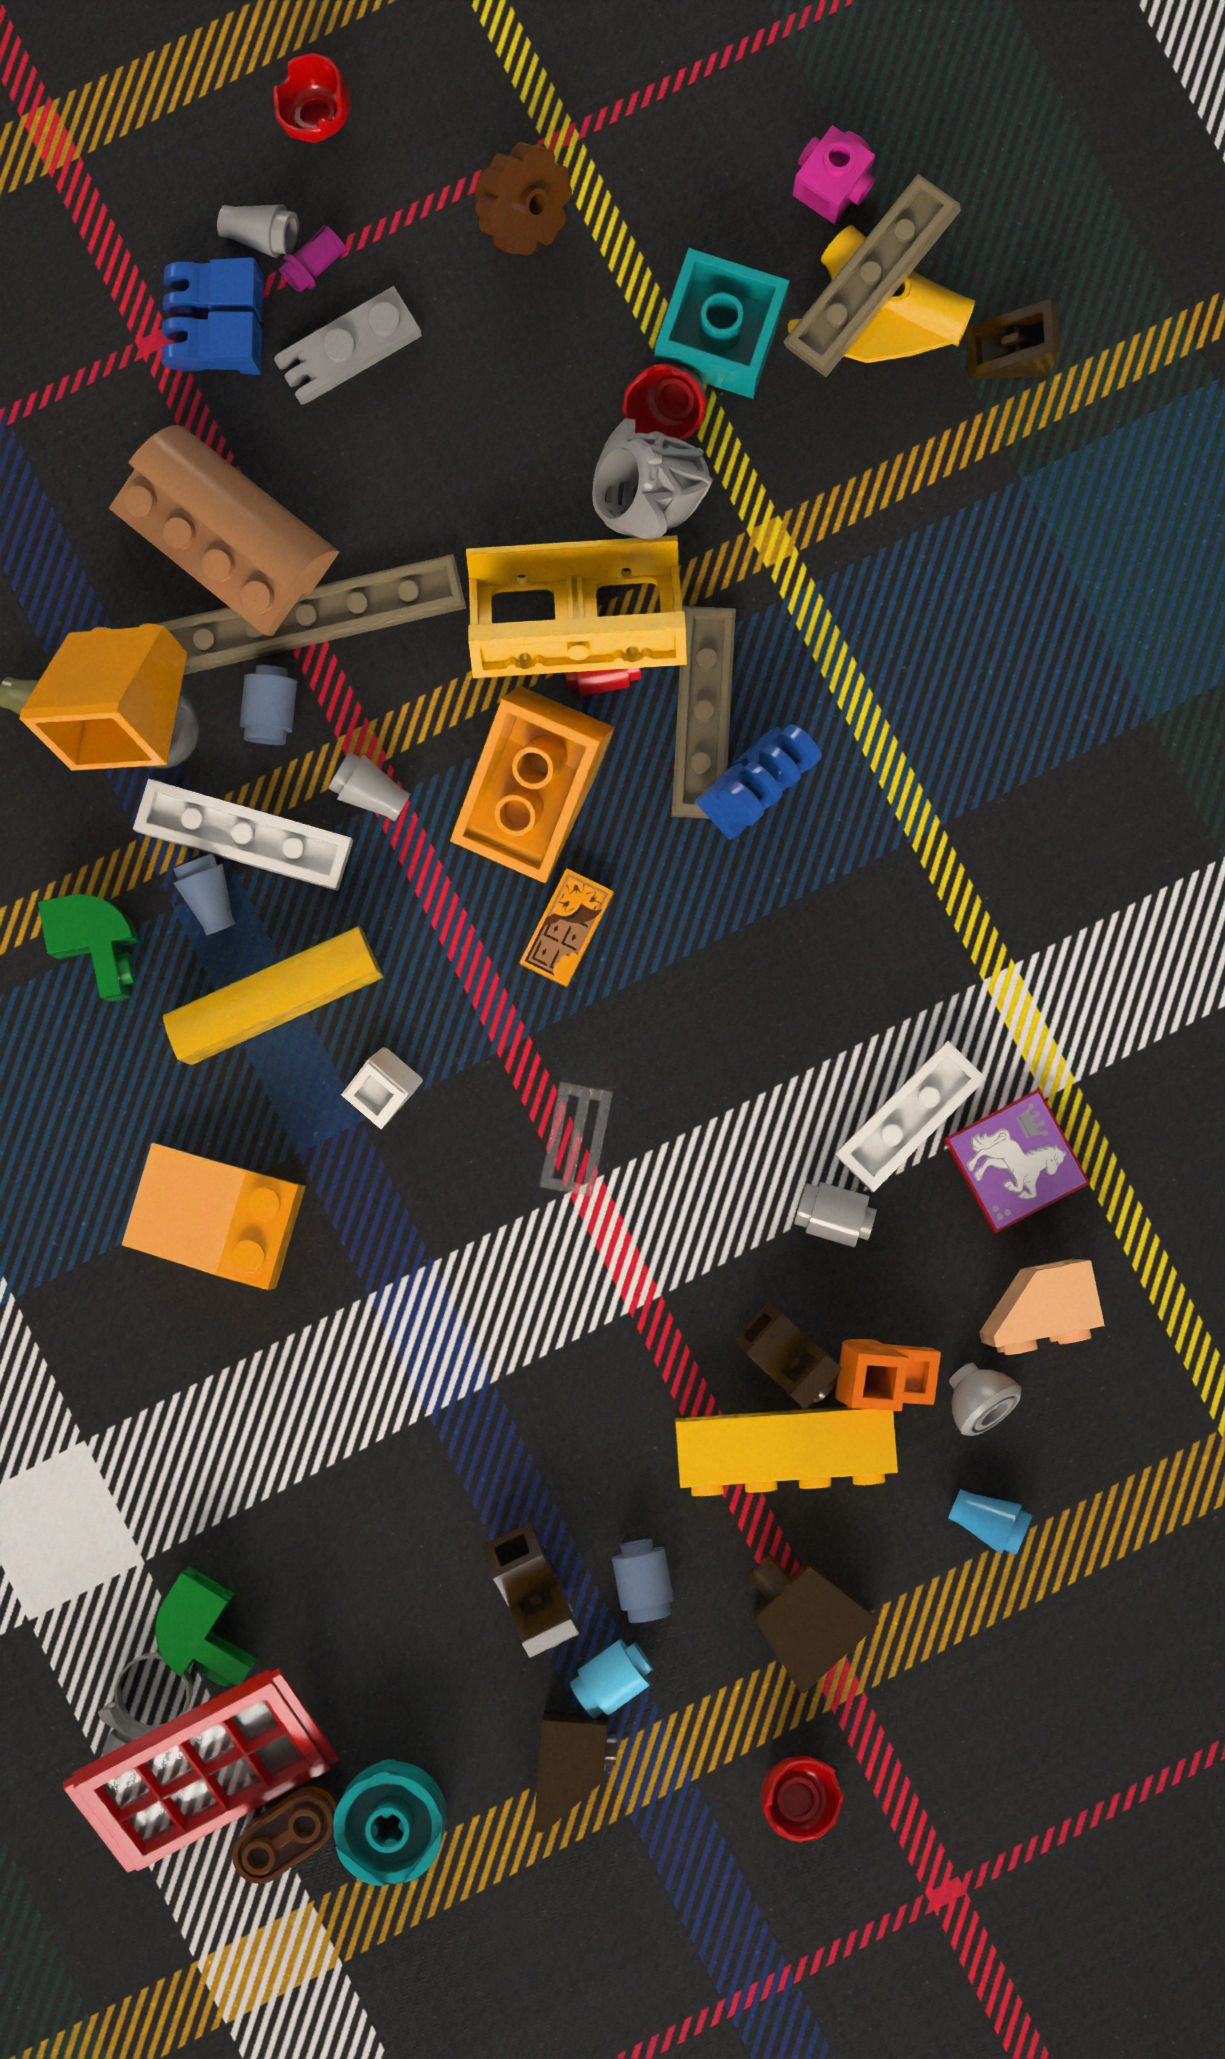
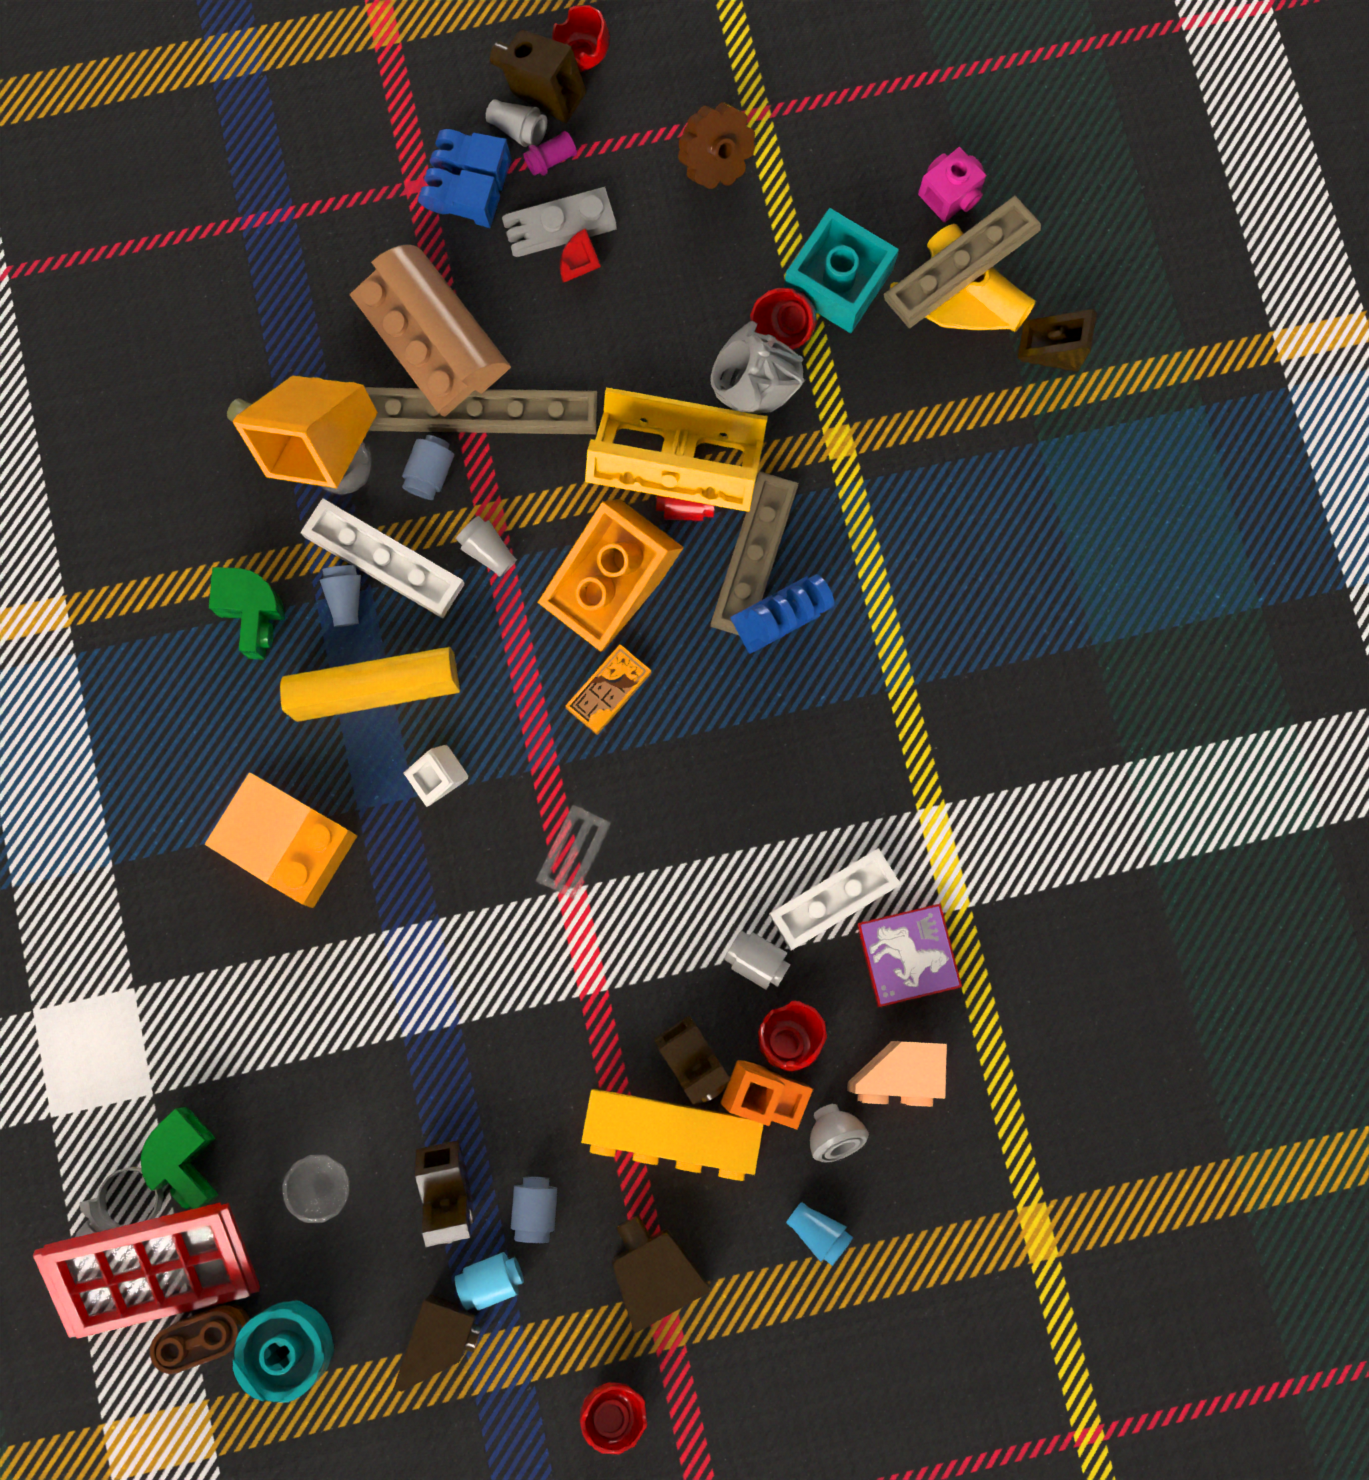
camera: 10 degrees right, 5 degrees down
(274, 157) = (541, 73): none -> dark brown torso
(375, 1623) = (315, 1188): none -> clear hair
(384, 386) = (578, 256): none -> red tile
(900, 1295) = (792, 1036): none -> red hair

